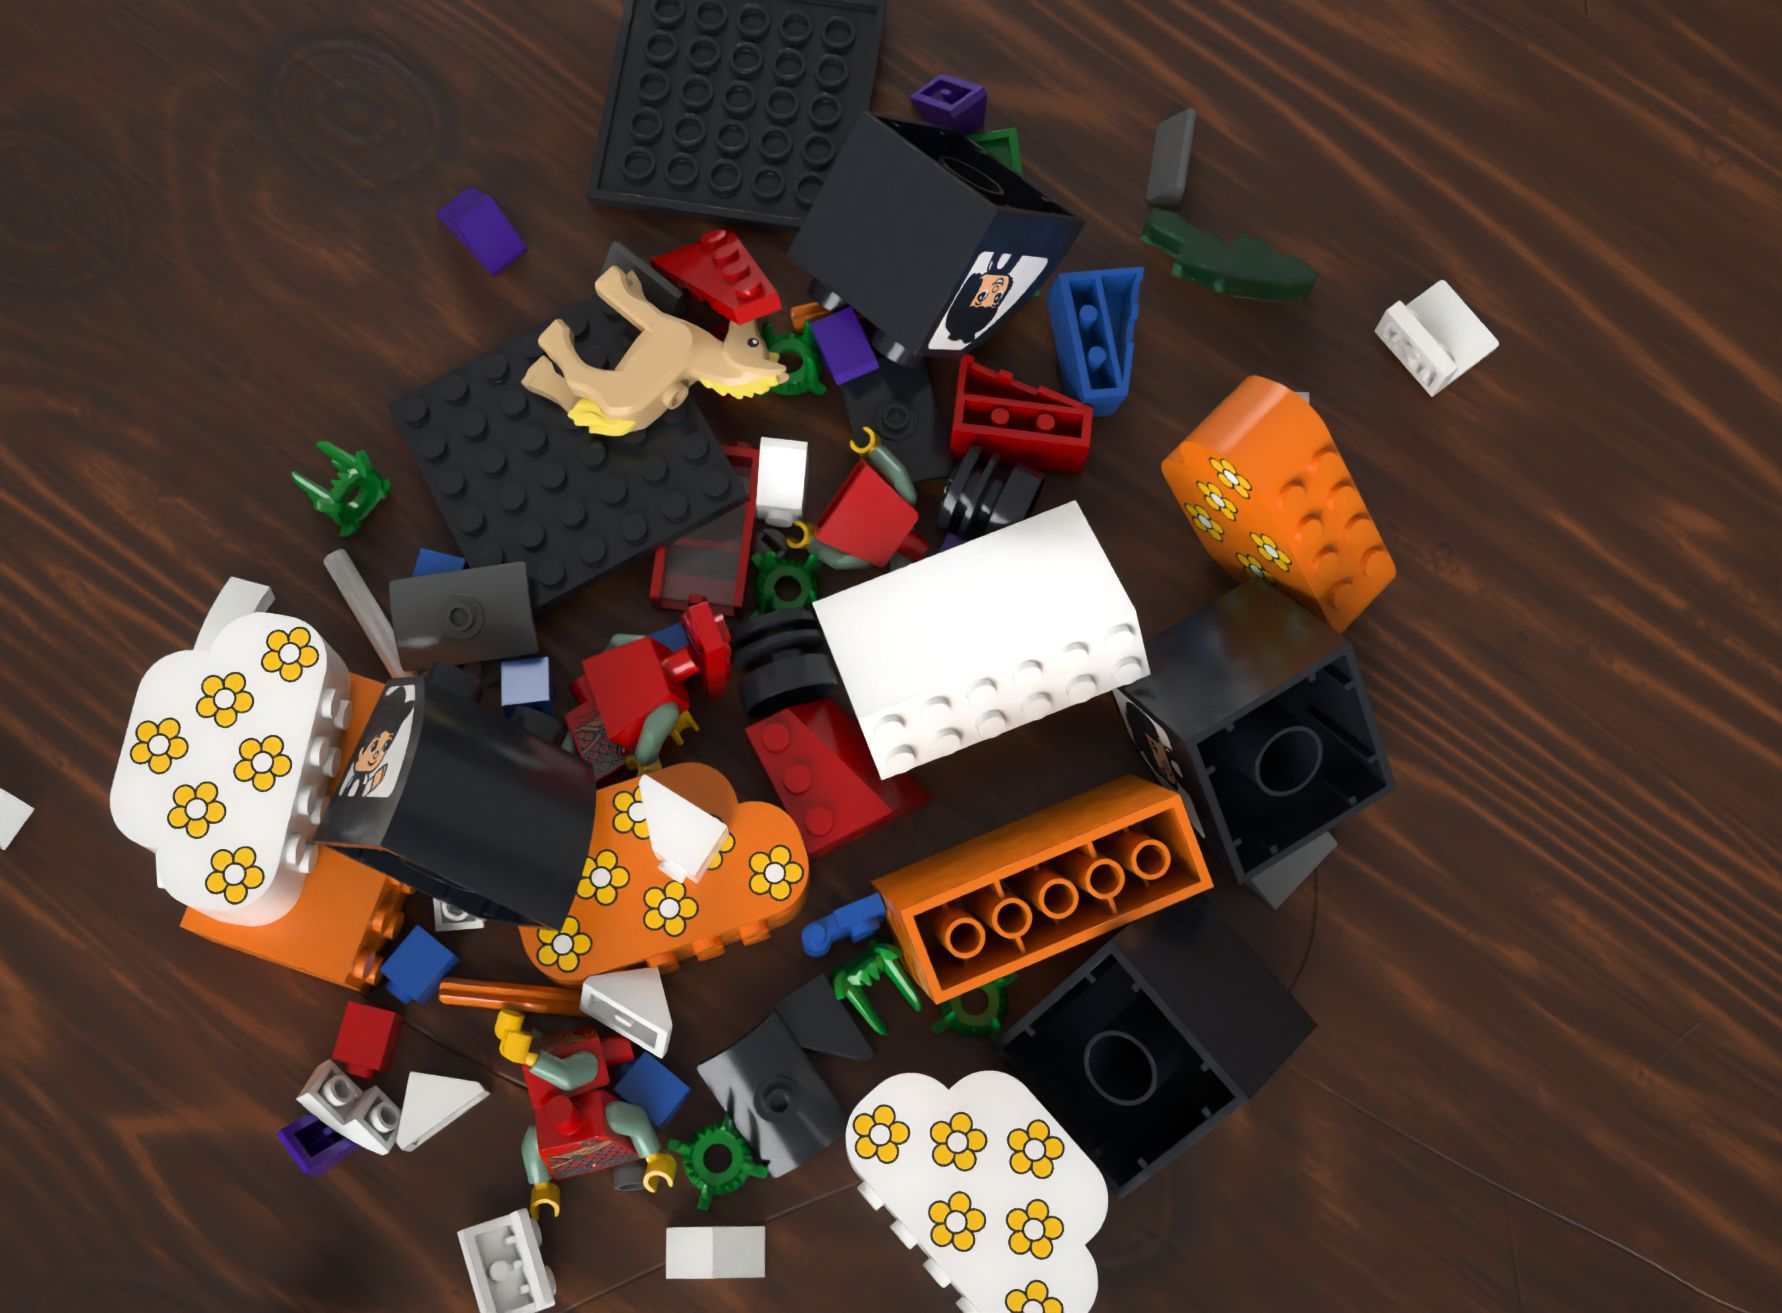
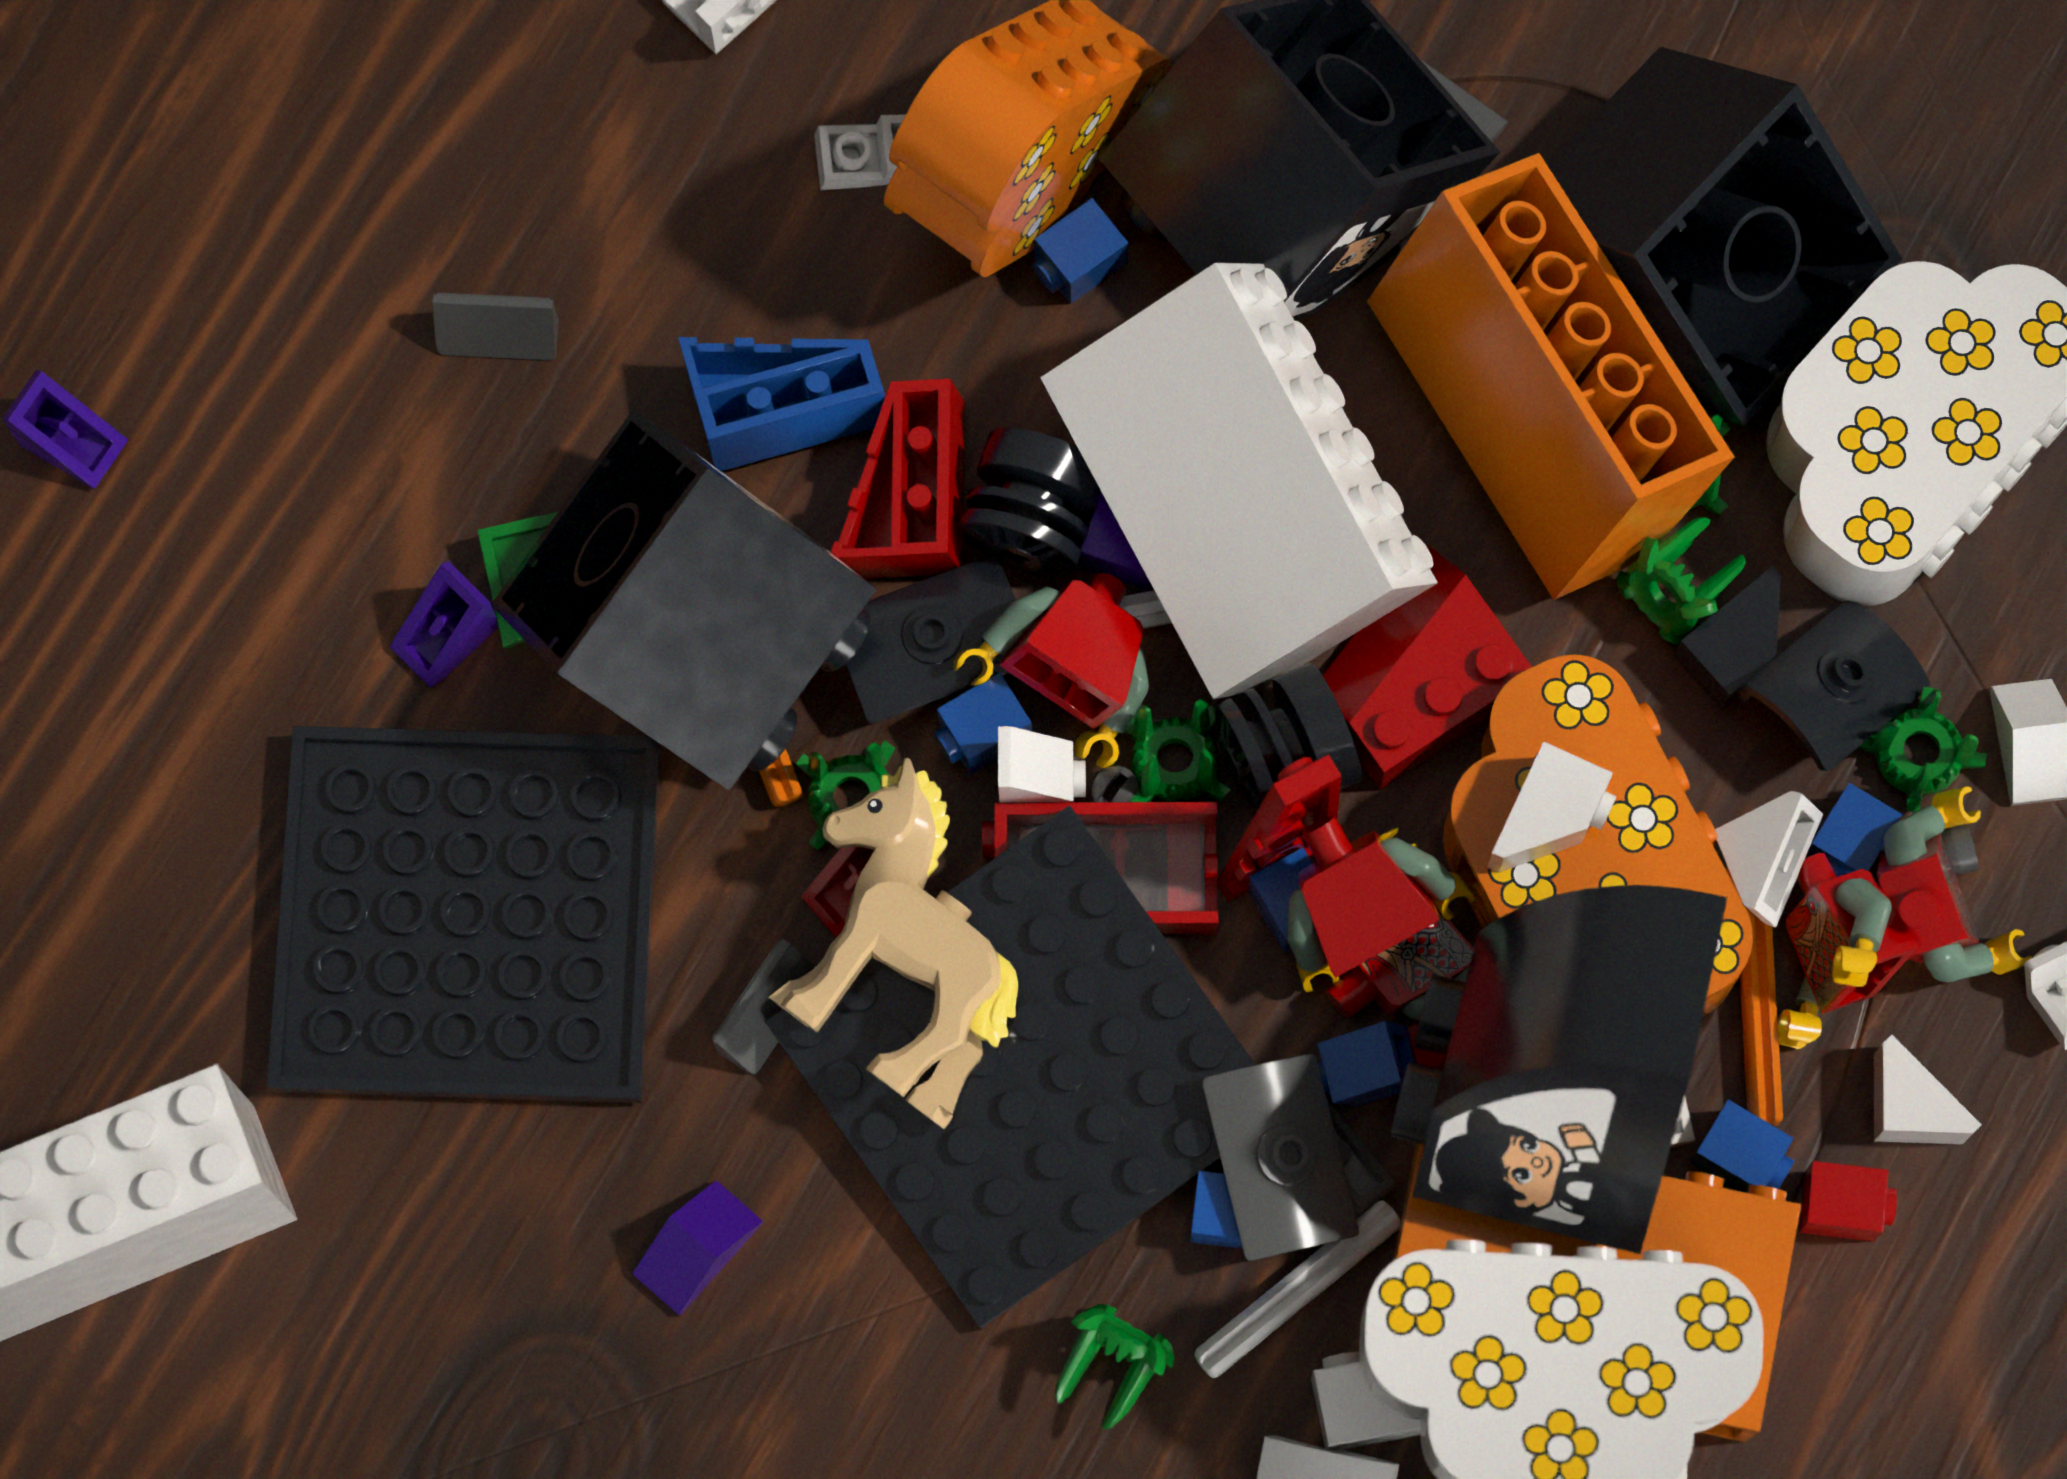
camera: 90 degrees left, 0 degrees up
(315, 1145) = (1970, 1228): dark purple slope -> none
(360, 1116) = (1941, 1199): white slope -> none
(722, 273) = (756, 881): red wing -> none
(829, 454) = (972, 722): none -> blue brick
(843, 346) = (846, 707): dark purple slope -> none
(853, 921) = (1608, 608): blue plate -> none
(1191, 567) = (1079, 252): none -> blue brick
(1244, 271) = (649, 224): clear green slope -> none

